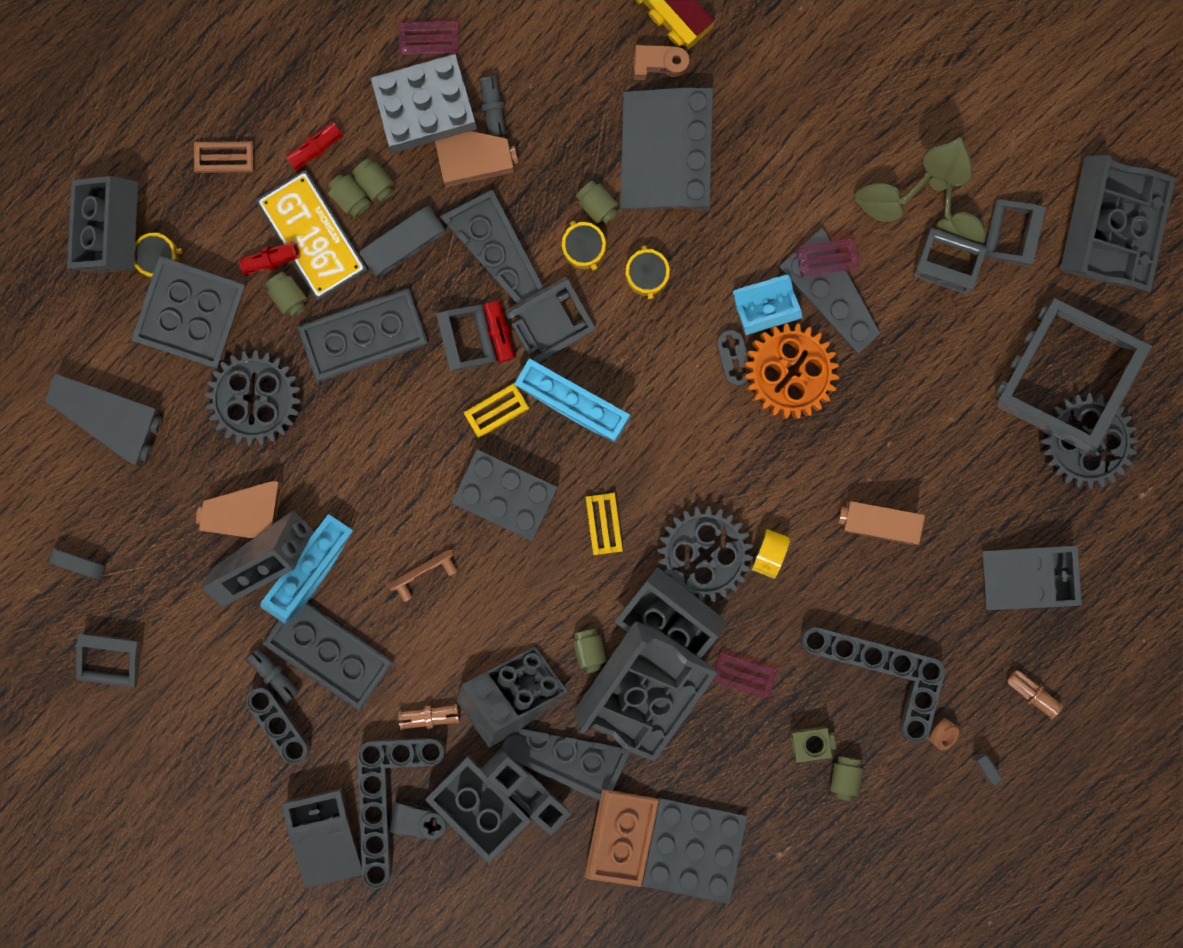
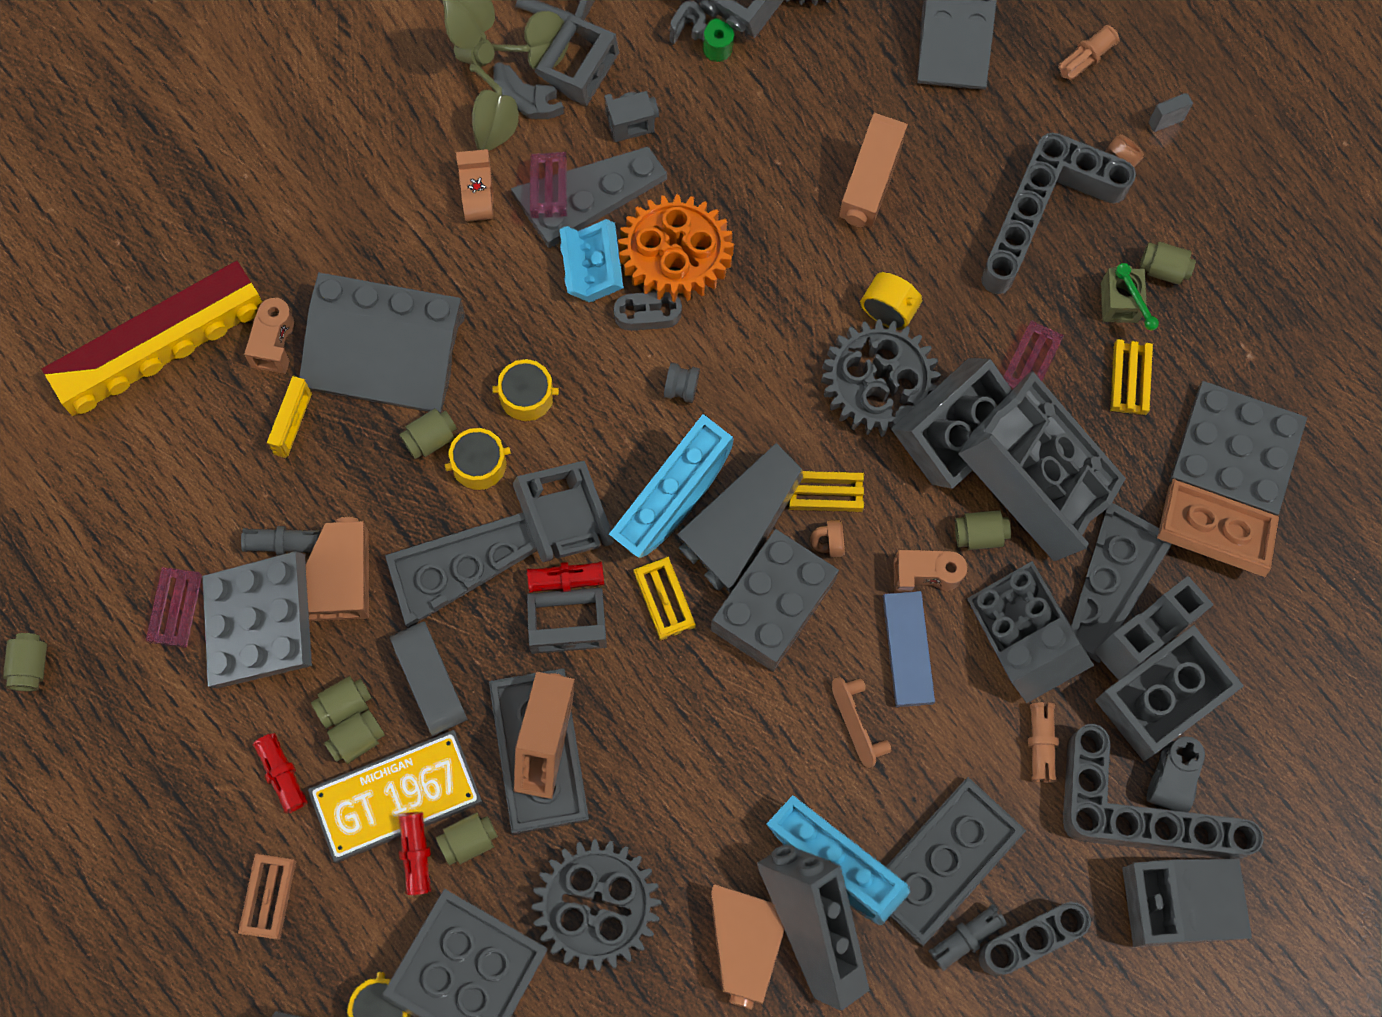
camera: 85 degrees left, 15 degrees down
(370, 336) = (543, 735): none -> nougat slope
(486, 605) = (908, 649): none -> sand blue tile
(553, 623) = (923, 567): none -> nougat leg
(562, 458) = (741, 518): none -> dark grey slope
(565, 535) = (835, 535): none -> nougat tile
(593, 91) = (289, 417): none -> yellow tile
(673, 395) = (681, 382): none -> dark grey wheel
(745, 758) = (1145, 382): none -> yellow tile
(818, 199) = (476, 184): none -> nougat leg
(825, 740) = (1123, 272): none -> green hinge
(906, 315) = (631, 115): none -> dark grey brick
(910, 223) = (529, 99): none -> dark grey piece
(992, 374) = (716, 35): none -> leg

